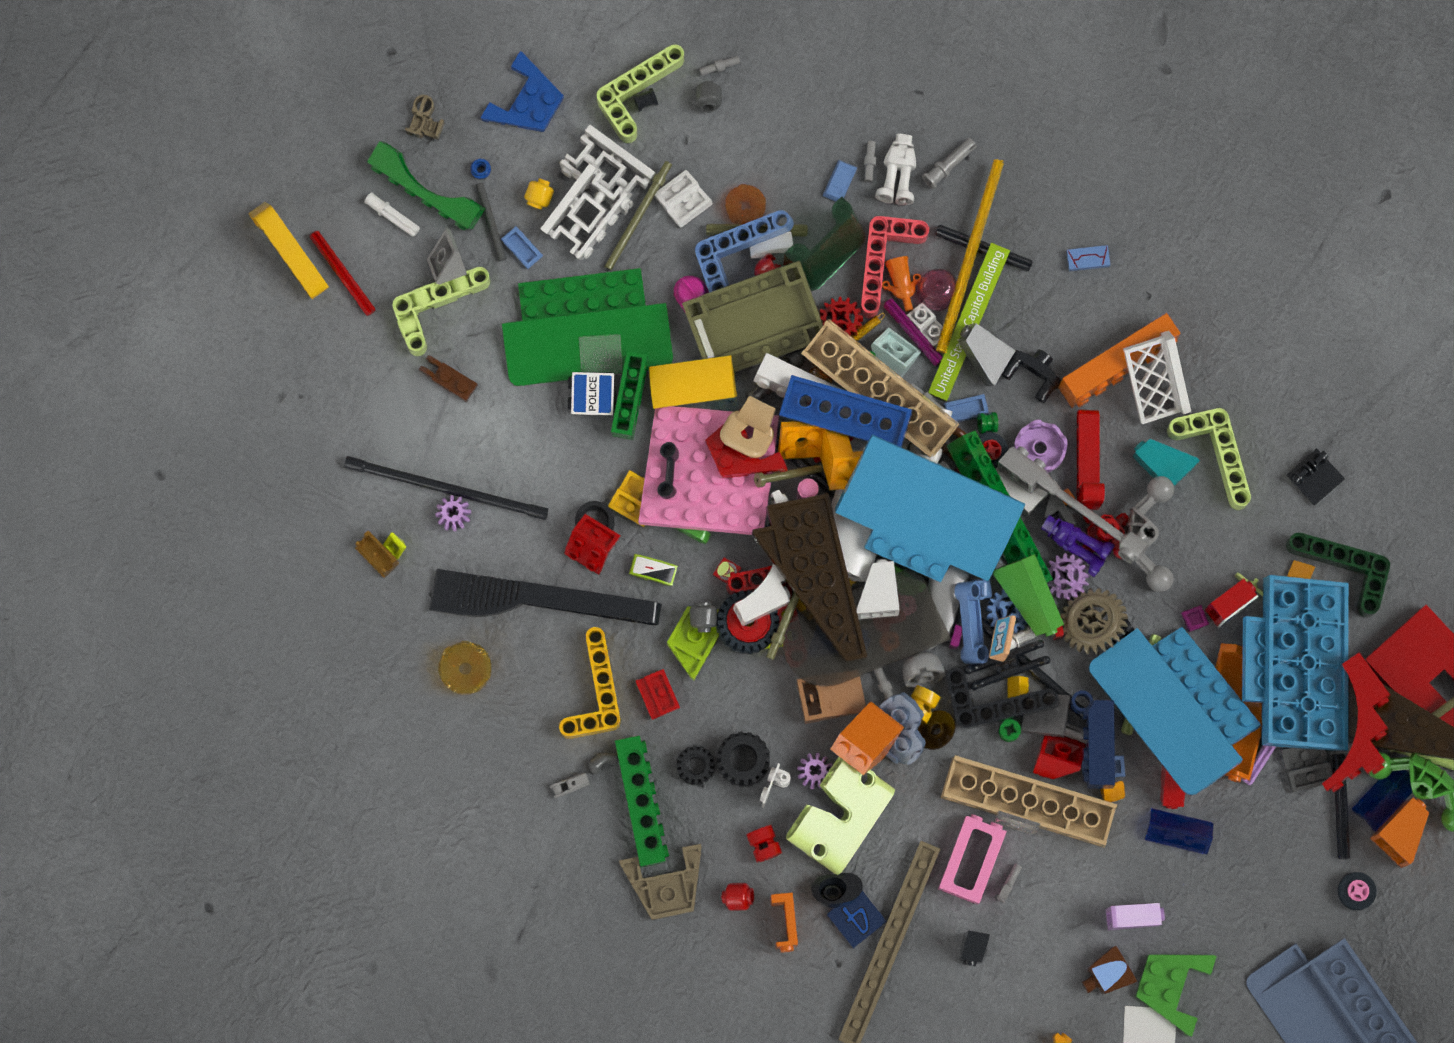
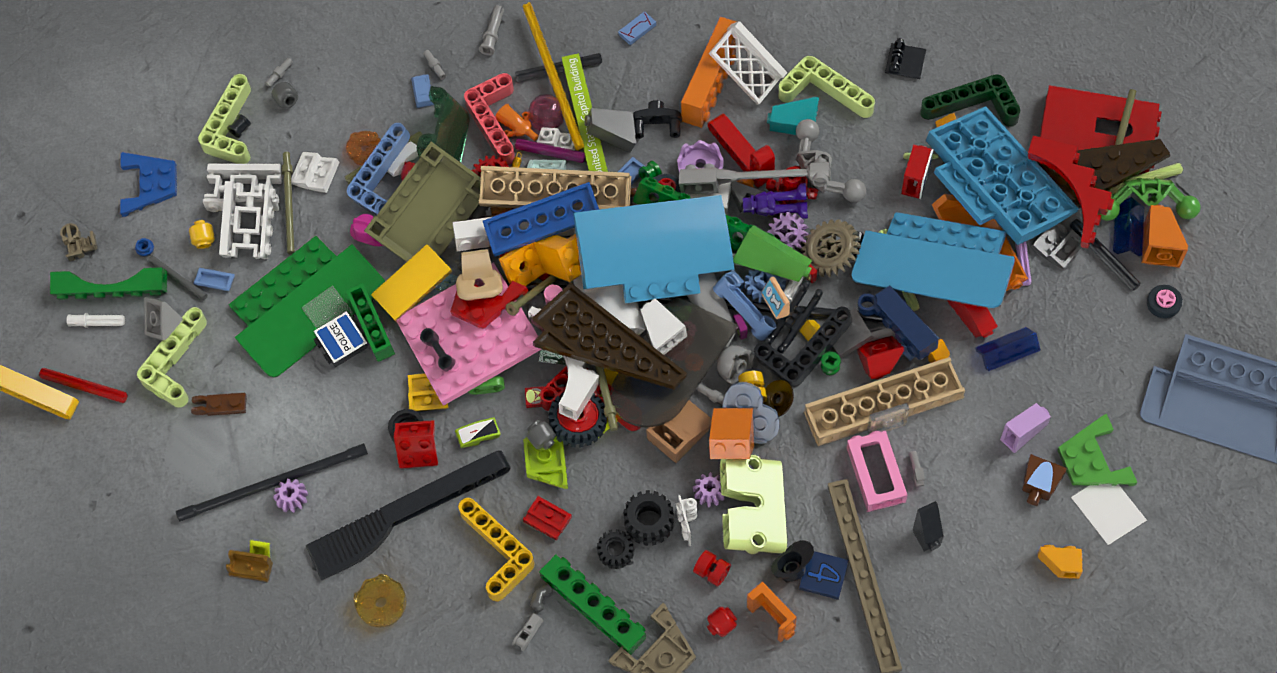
camera: 30 degrees left, 15 degrees down
(901, 158) = (456, 48): white piece -> none
(1194, 618) = (899, 202): magenta tile -> none

